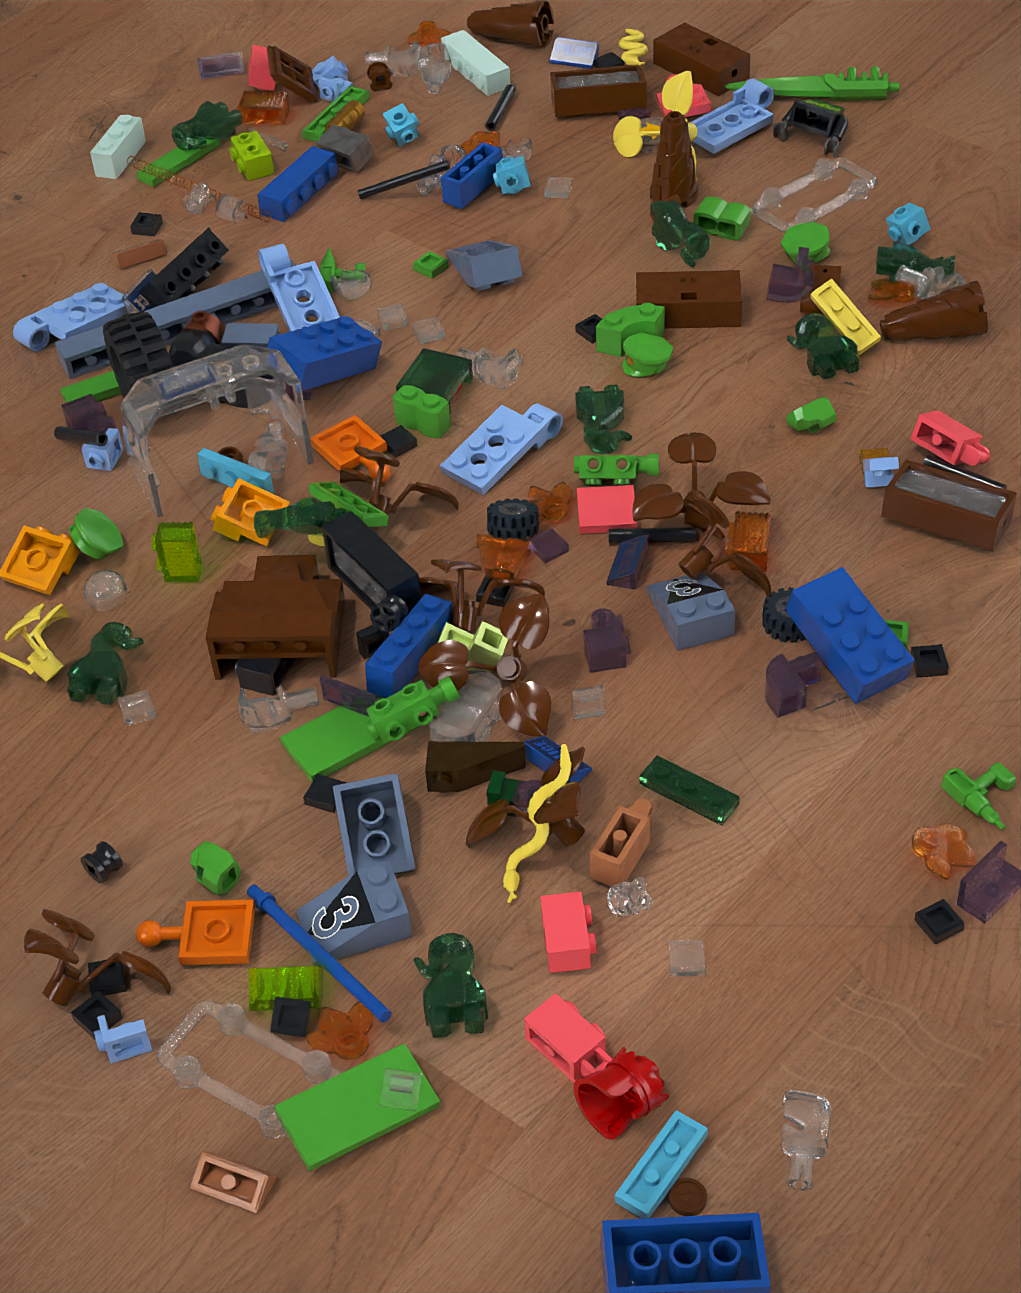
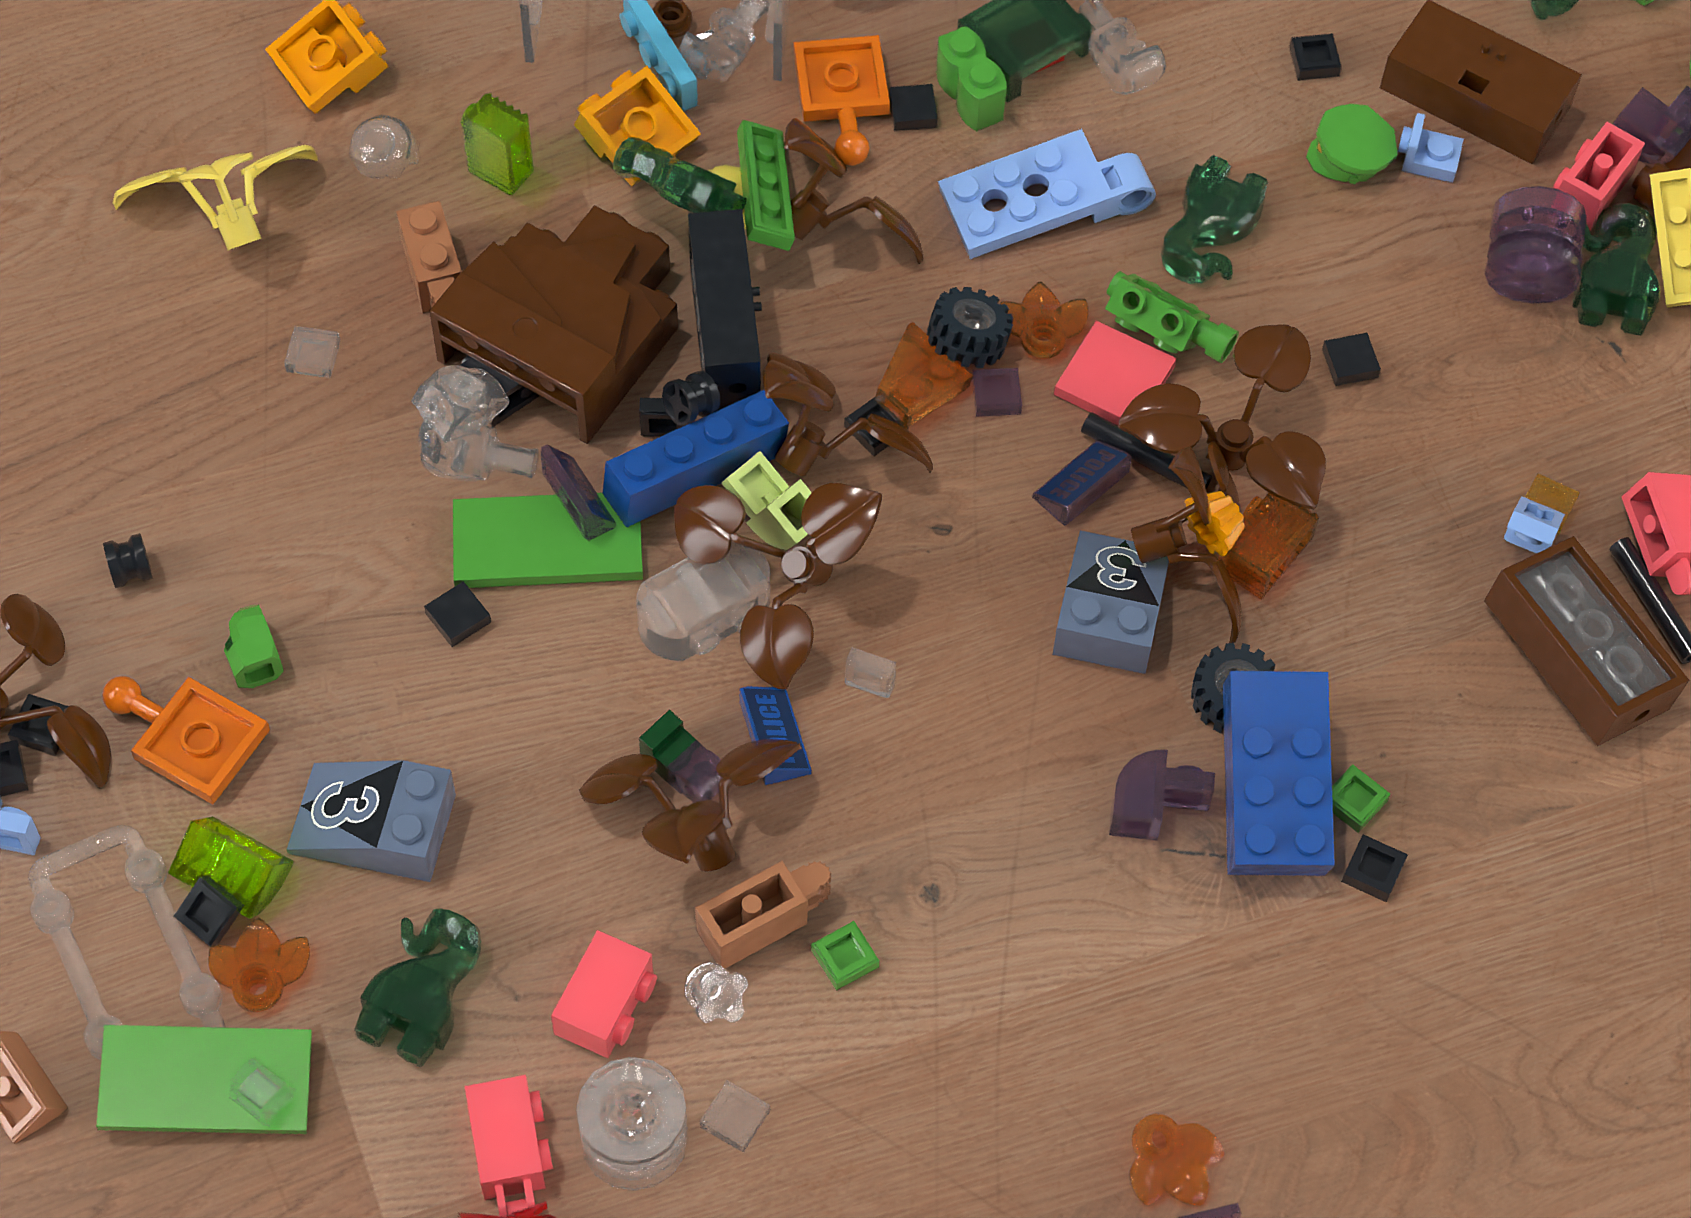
camera: 25 degrees right, 15 degrees up
(95, 534) = (418, 53): bright green hat -> none
(102, 668) = (303, 269): clear green hips -> none
(177, 627) = (428, 251): none -> nougat hinge
(260, 673) = (459, 401): none -> clear hand
(267, 904) = (285, 732): blue bar -> none
(374, 824) = (477, 705): sand blue slope -> none
(404, 708) = (625, 558): bright green brick -> none
(465, 764) = (652, 677): dark brown slope -> none
(511, 877) = (601, 871): light yellow animal -> none
(604, 643) = (953, 598): clear purple brick -> none
(625, 322) = (1359, 80): bright green brick -> none
(637, 985) = (632, 1150): none -> clear wheel
(683, 846) = (845, 955): none -> bright green tile
(686, 342) = (1429, 152): none -> light blue bracket
(689, 790) = (911, 877): clear green plate -> none
(722, 540) = (1225, 526): none -> light orange piece
(726, 445) = (1351, 359): none -> black tile
(778, 350) = (1536, 245): none -> clear purple wheel
(780, 310) = (1601, 170): none -> coral brick
(812, 416) = (1508, 380): bright green rock -> none
(973, 793) = (1271, 1101): bright green piece -> none

